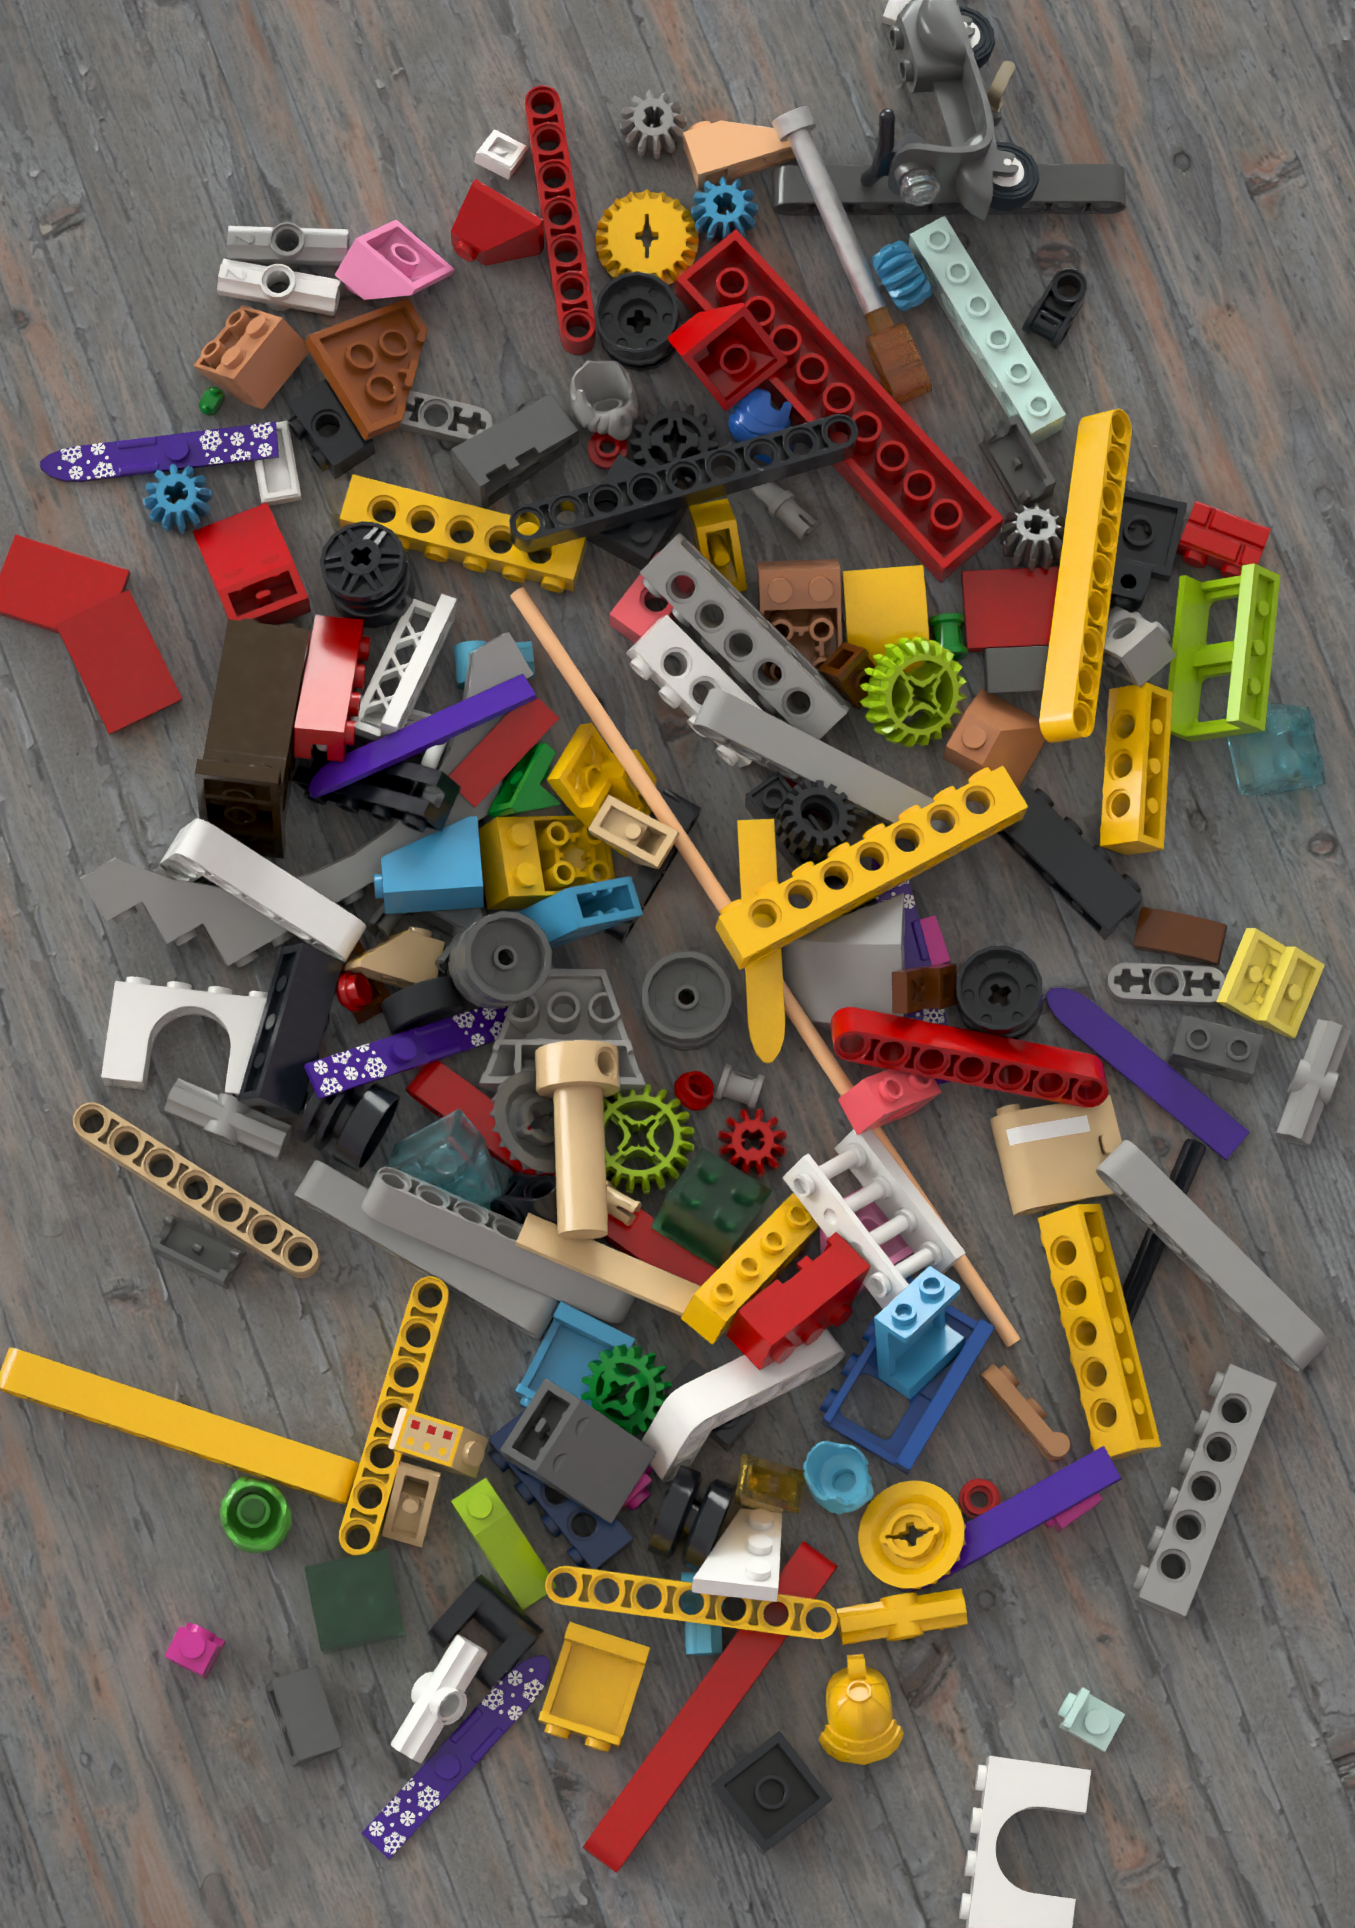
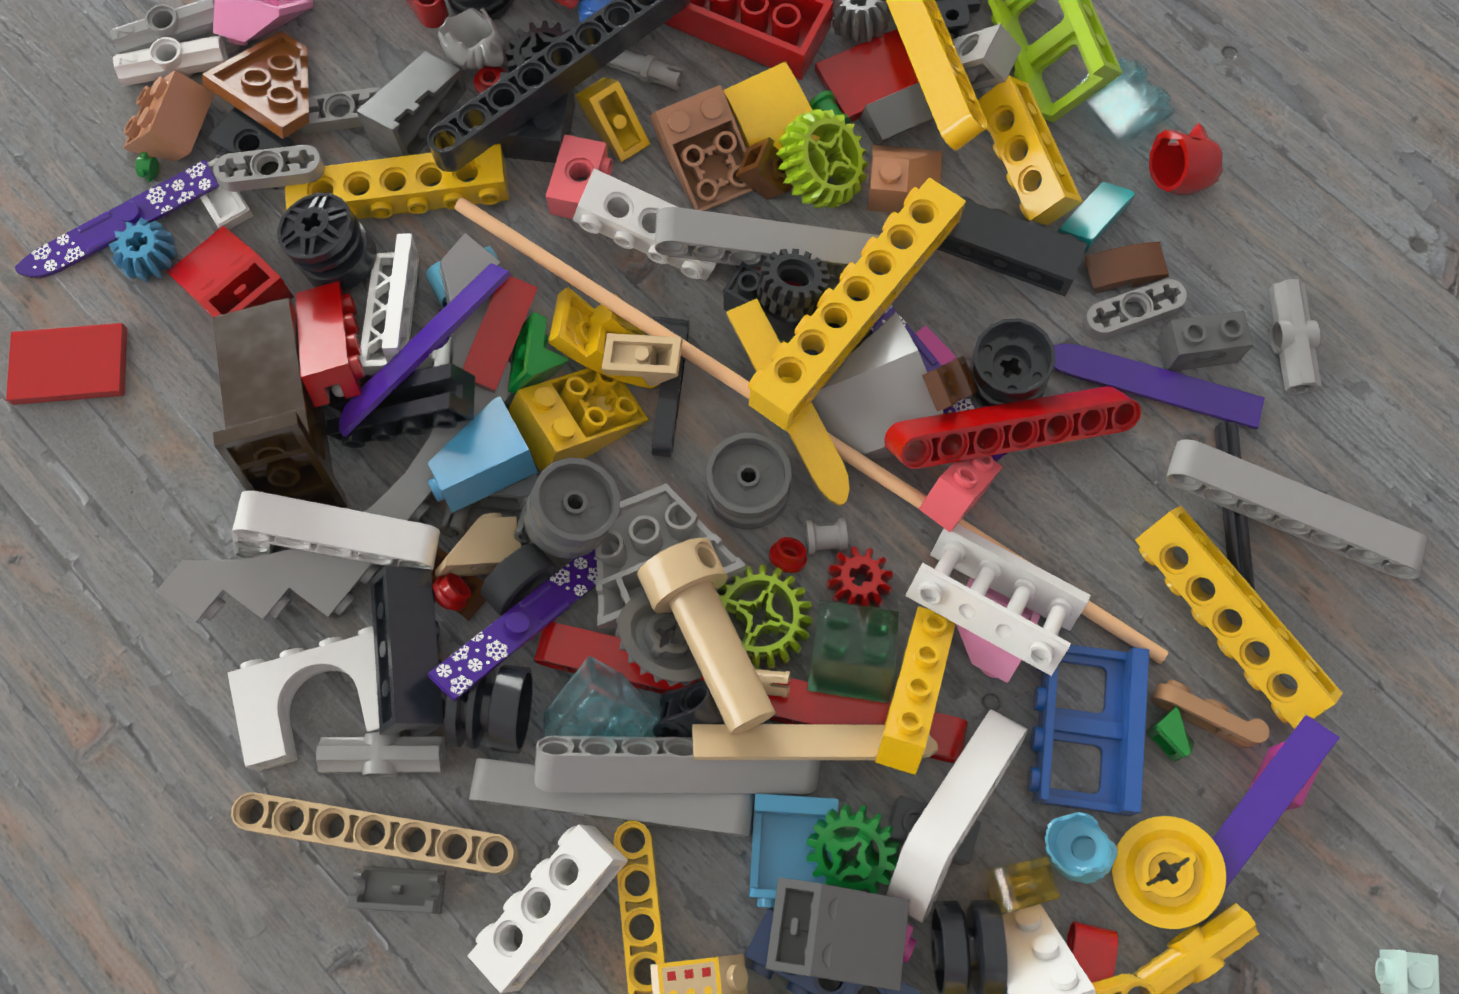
camera: 20 degrees left, 5 degrees down
(119, 662) = (138, 399): red tile -> none
(370, 467) = (256, 159): none -> light grey beam
(388, 1304) = (597, 865): none -> white brick
(585, 910) = (629, 436): dark azure slope -> none
(740, 616) = (584, 122): light grey brick -> none
(802, 1307) = (977, 703): red wedge -> none
(913, 1334) = (1088, 685): dark azure panel -> none
(978, 1486) = (1217, 807): red plate -> none
(982, 1417) = (1170, 735): none -> green slope
(1054, 1153) = (1117, 482): tan door -> none
(1179, 866) = (1097, 213): none -> slope
(1253, 1396) = (1413, 736): light grey brick -> none
(1270, 983) = (1217, 274): light yellow slope -> none
(1295, 851) = (1185, 165): none -> red piece

